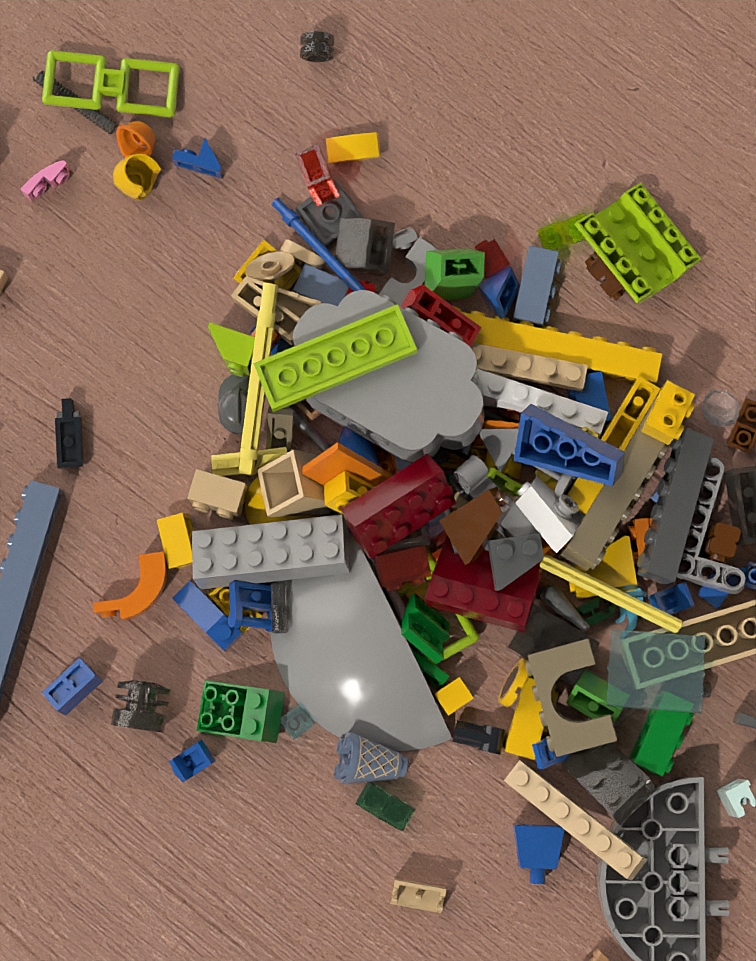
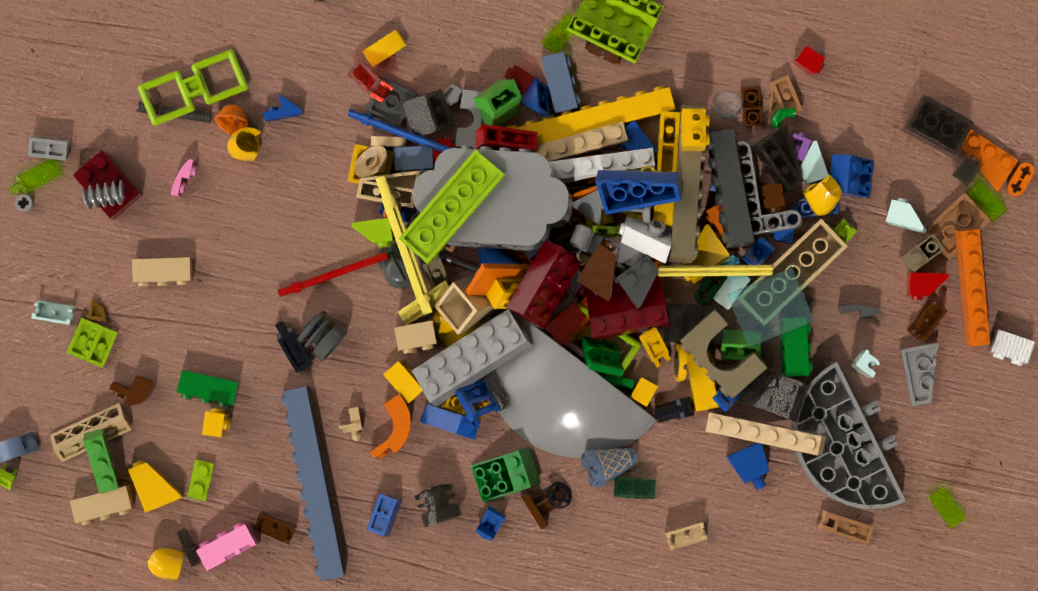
camera: 25 degrees left, 5 degrees up
(95, 563) = (356, 424): none -> tan piece
(108, 434) = (322, 335): none -> dark grey wheel
(111, 369) = (297, 286): none -> red bar
(271, 770) = (547, 502): none -> reddish brown piece
(296, 722) = (547, 462): clear light blue tile -> none
(493, 647) = (654, 346): none -> yellow hinge
(559, 603) = (684, 293): dark grey piece -> none
(620, 621) = (730, 285): none -> light aqua slope

